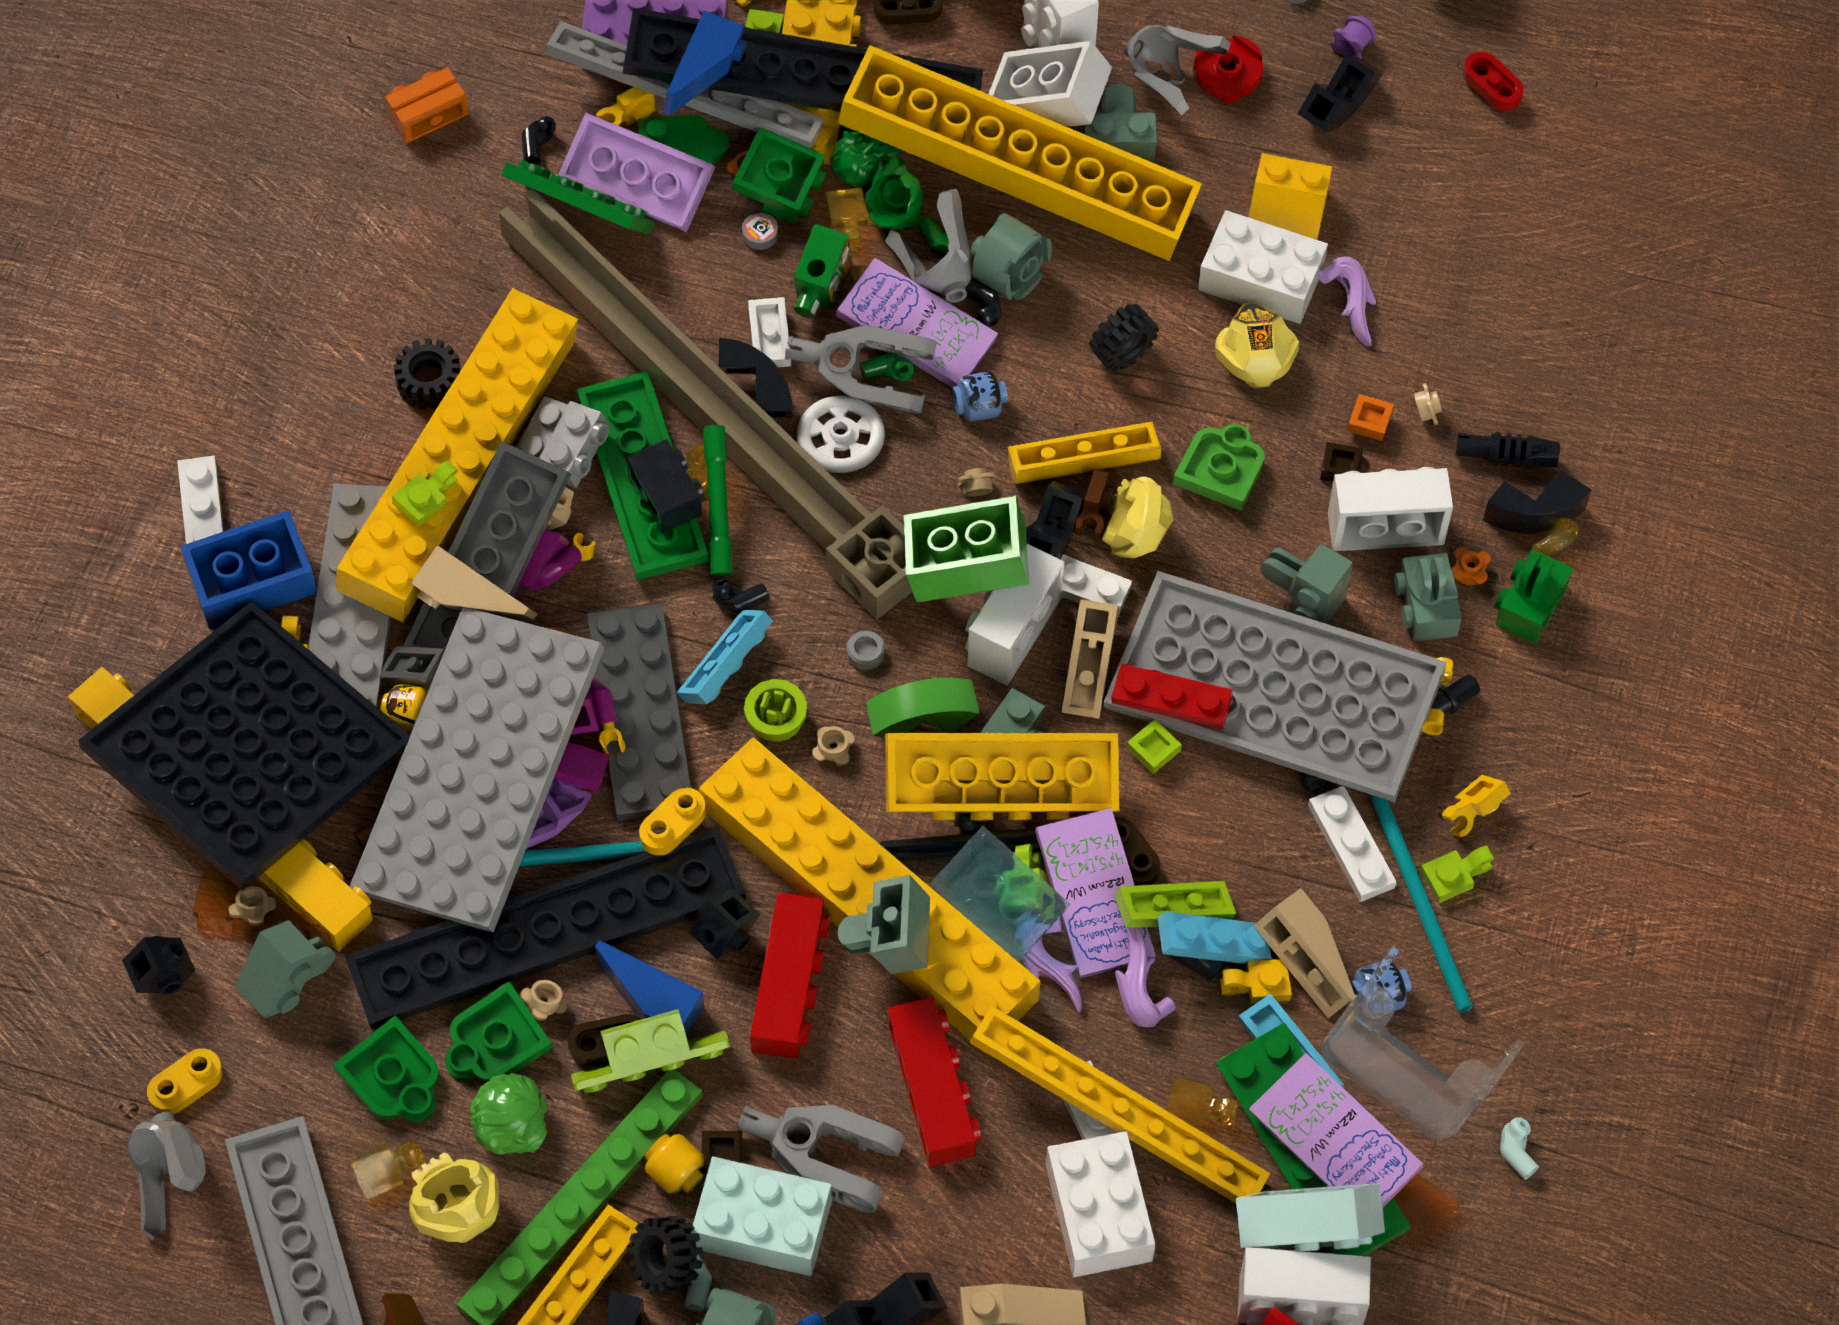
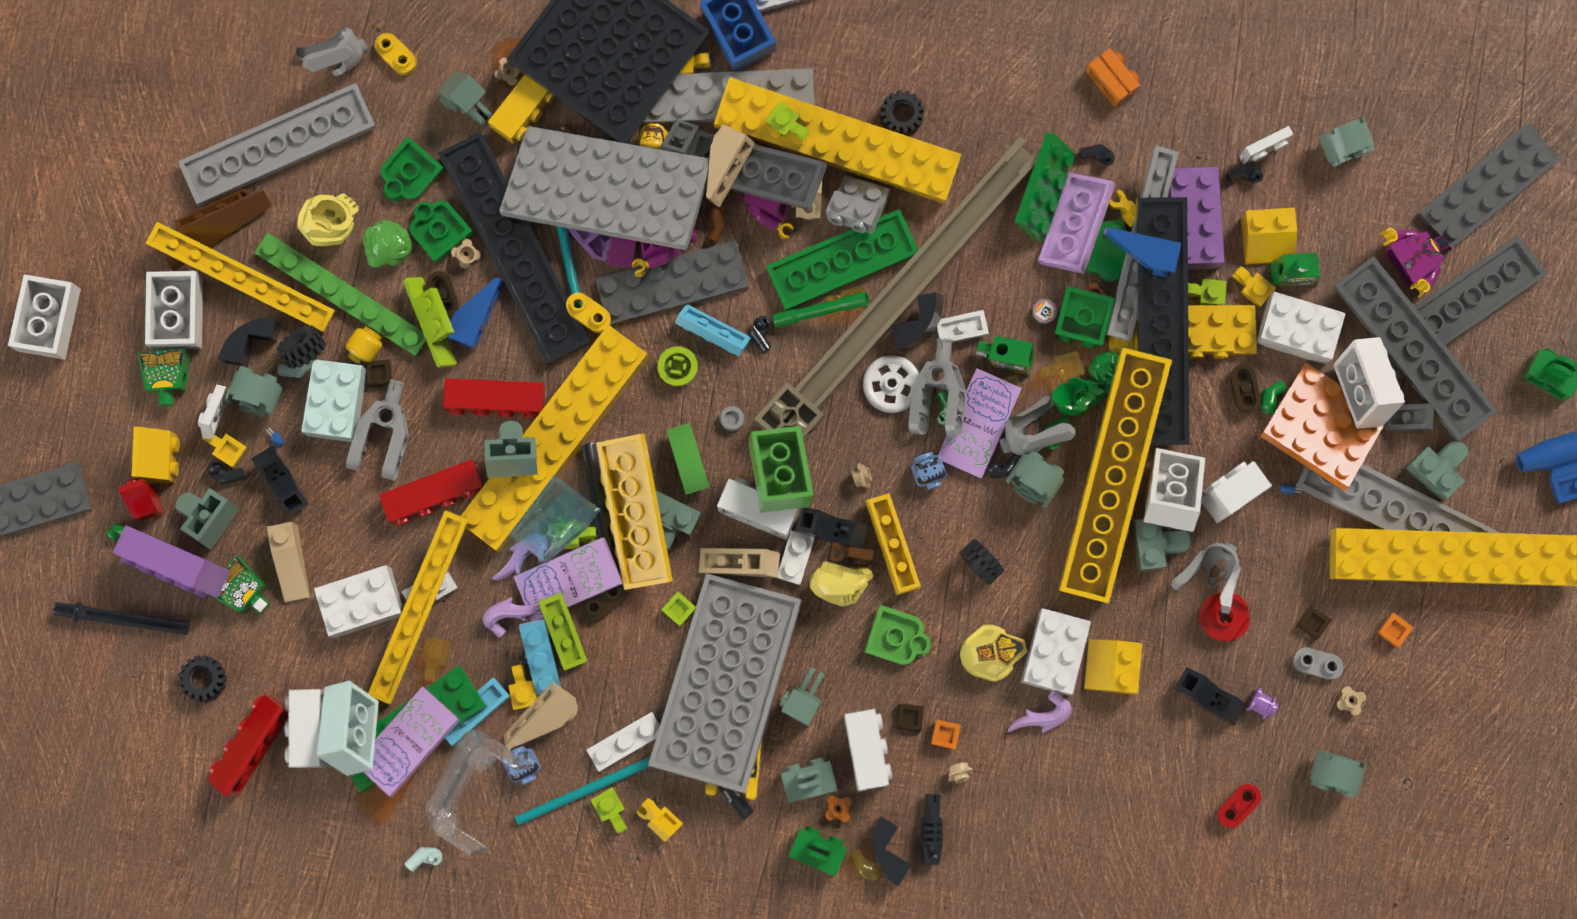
camera: 85 degrees right, 20 degrees up
(158, 965) = (461, 24): black brick -> none
(380, 1169) = (346, 177): clear yellow plate -> none
(665, 485) = (826, 274): black brick -> none
(718, 929) = (520, 353): black brick -> none
(829, 736) = (655, 401): tan plate -> none
(1172, 696) = (709, 616): red plate -> none

